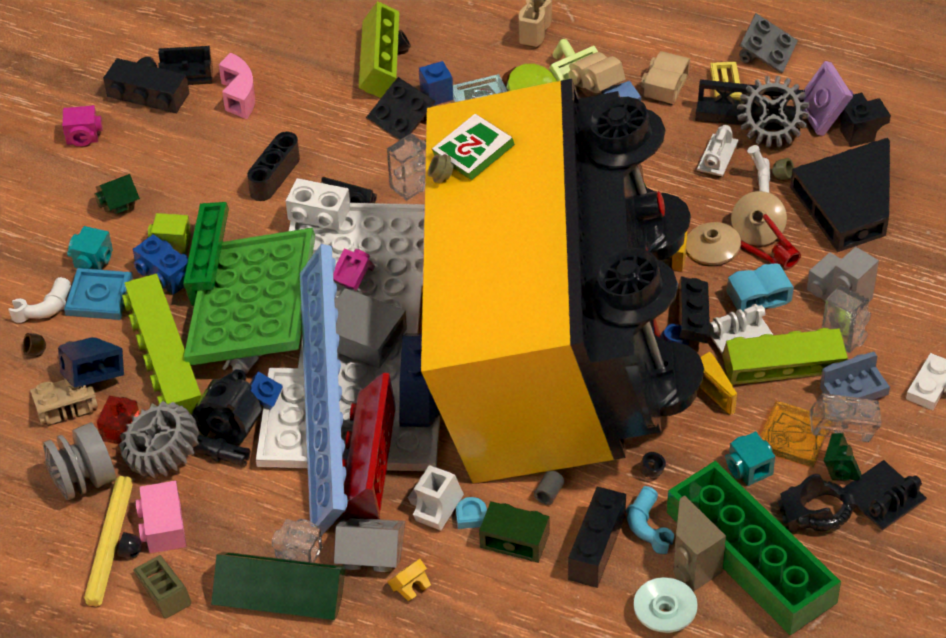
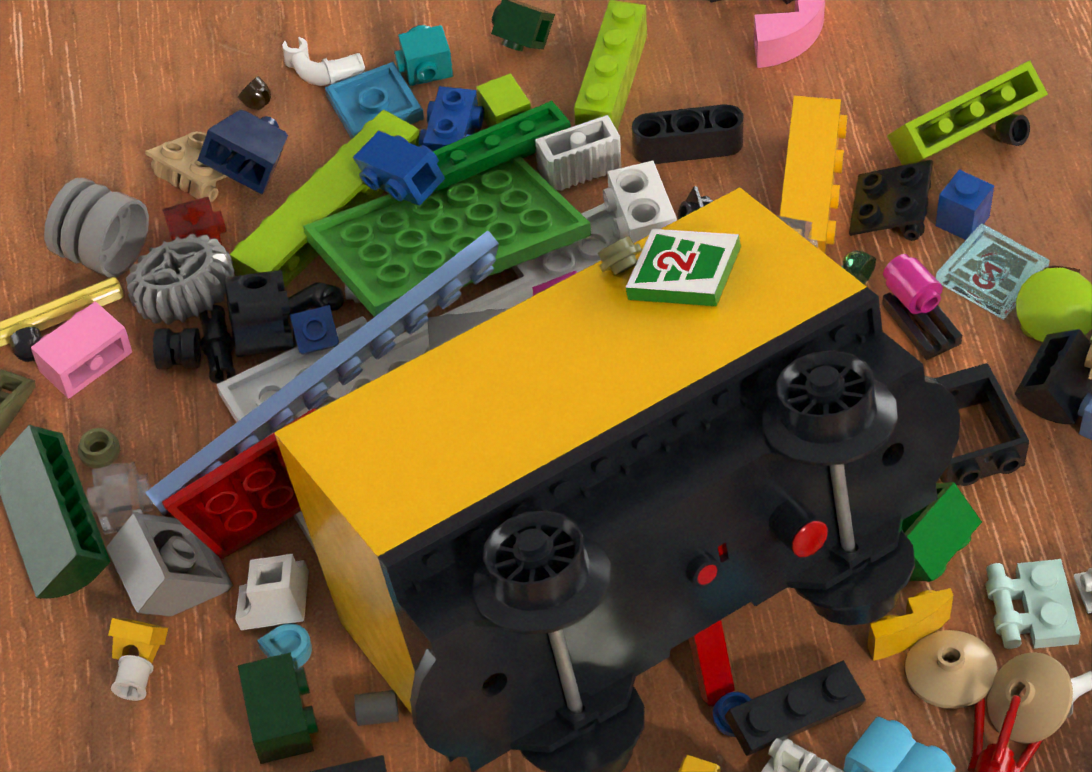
camera: 60 degrees right, 5 degrees up
(190, 288) = (399, 168): none -> blue brick
(192, 171) = (612, 63): none -> lime brick
(207, 468) = (177, 348): none -> black wheel
(244, 536) = (95, 440): none -> olive plate
(245, 212) = (579, 153): none -> white brick
(353, 125) = (812, 165): none -> yellow wedge
(435, 593) = (132, 677): none -> white axle
(703, 192) = (1046, 604): none -> light aqua plate

